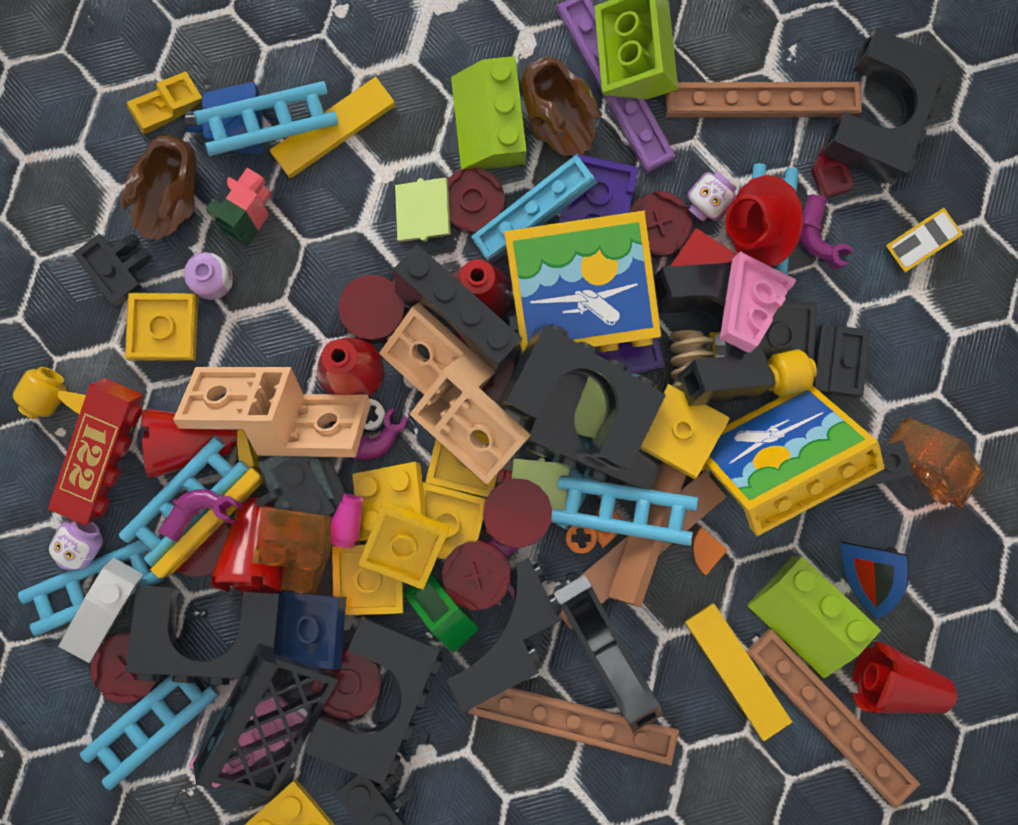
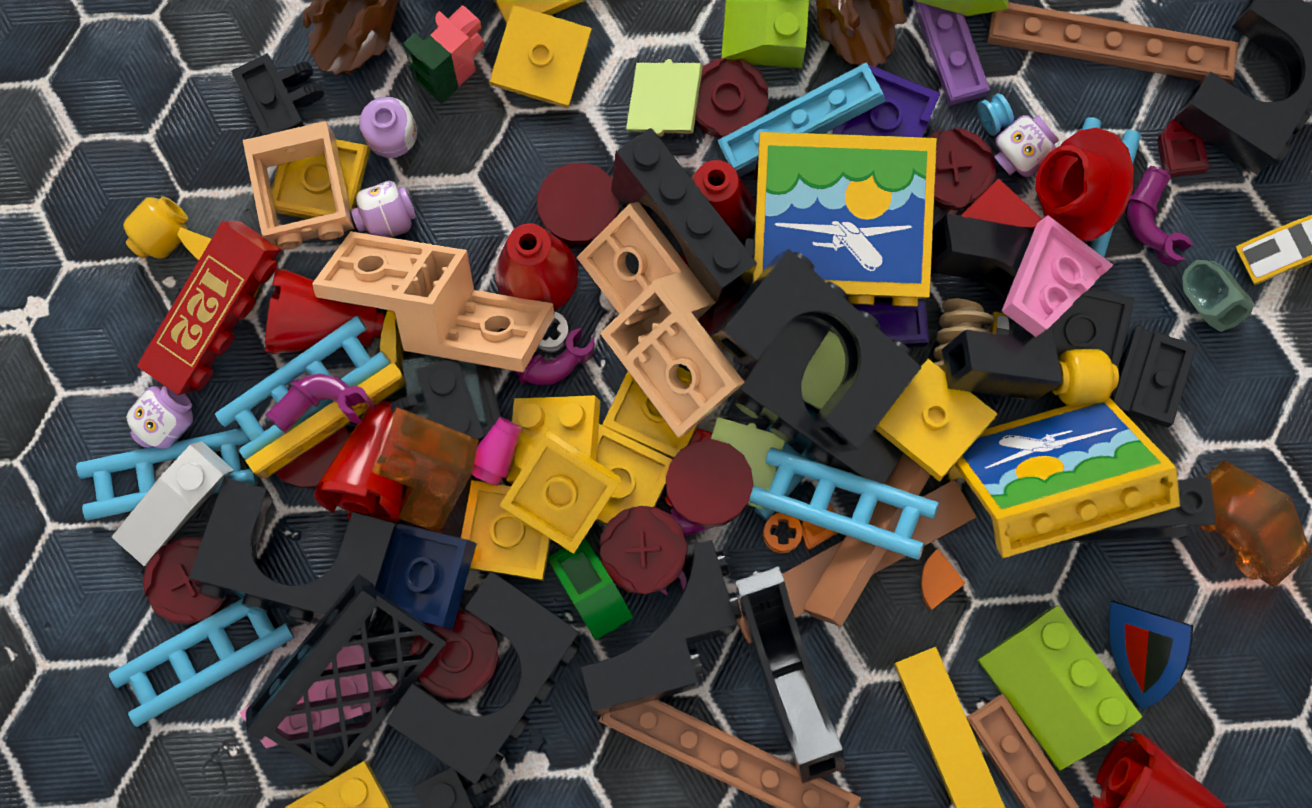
camera: 15 degrees right, 5 degrees down
(130, 309) = (289, 147): none -> light nougat window
(218, 344) = (383, 210): none -> lavender head
(317, 194) = (540, 56): none -> yellow plate
(683, 175) = (995, 114): none -> medium azure bush
(878, 286) = (1216, 294): none -> rock

